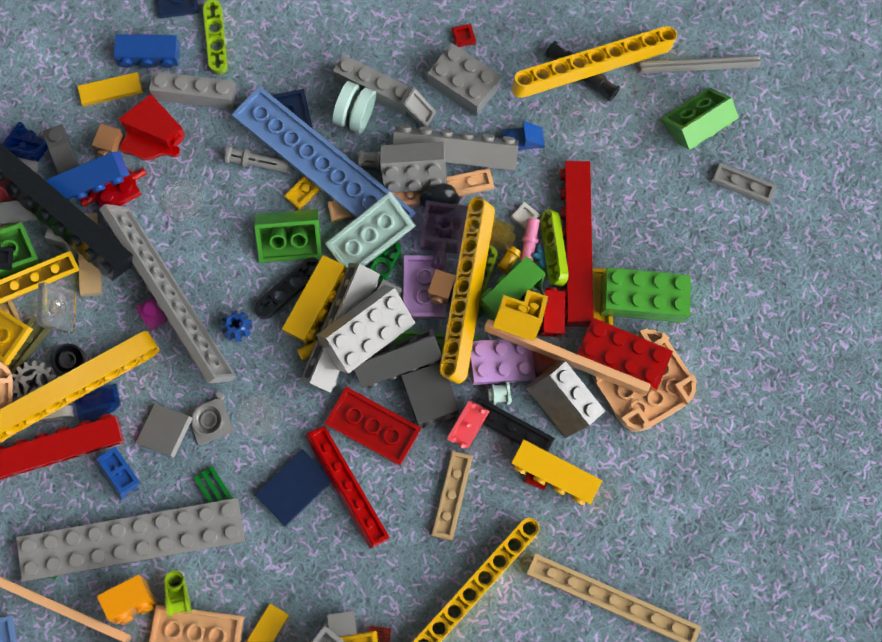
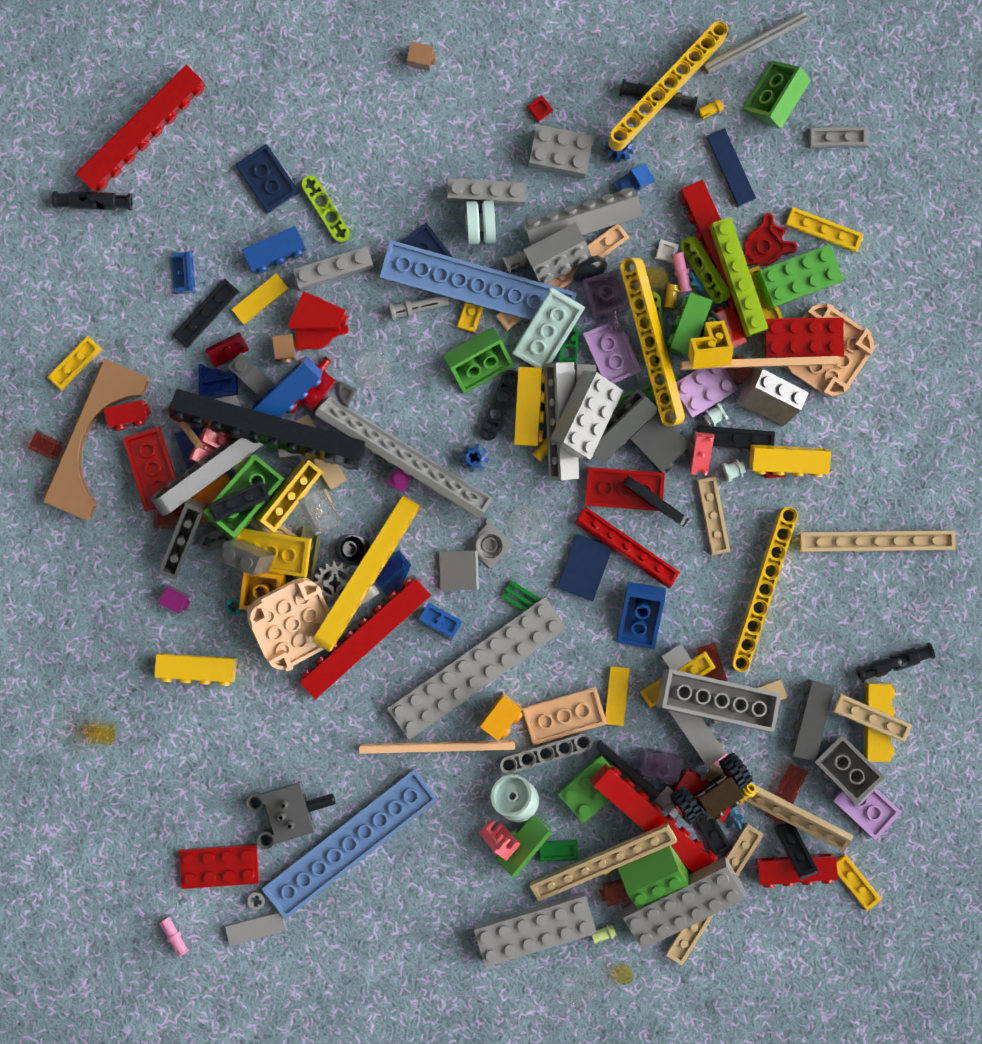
camera: 15 degrees left, 15 degrees up
(47, 118) = (227, 349): none -> dark red plate
(52, 34) = (183, 273): none -> blue hinge
(52, 80) = (206, 313): none -> black tile
(145, 211) = (346, 393): none -> flat silver tile
(177, 598) = (538, 696): lime piece -> none
(327, 563) = (641, 615): none -> blue slope
(397, 450) = (655, 501): none -> black beam
(417, 107) = (534, 196): light grey tile -> none
(441, 287) = (629, 349): medium nougat brick -> none
(494, 457) = (733, 470): none -> light aqua brick
(523, 104) = (620, 154): none -> blue piece
(582, 265) = (738, 277): none -> lime brick
(624, 166) = (731, 167): none -> dark blue tile
(628, 251) = (766, 244): none -> red tile
(629, 104) = (711, 108): none -> yellow pin
(692, 264) = (824, 229): none -> yellow tile

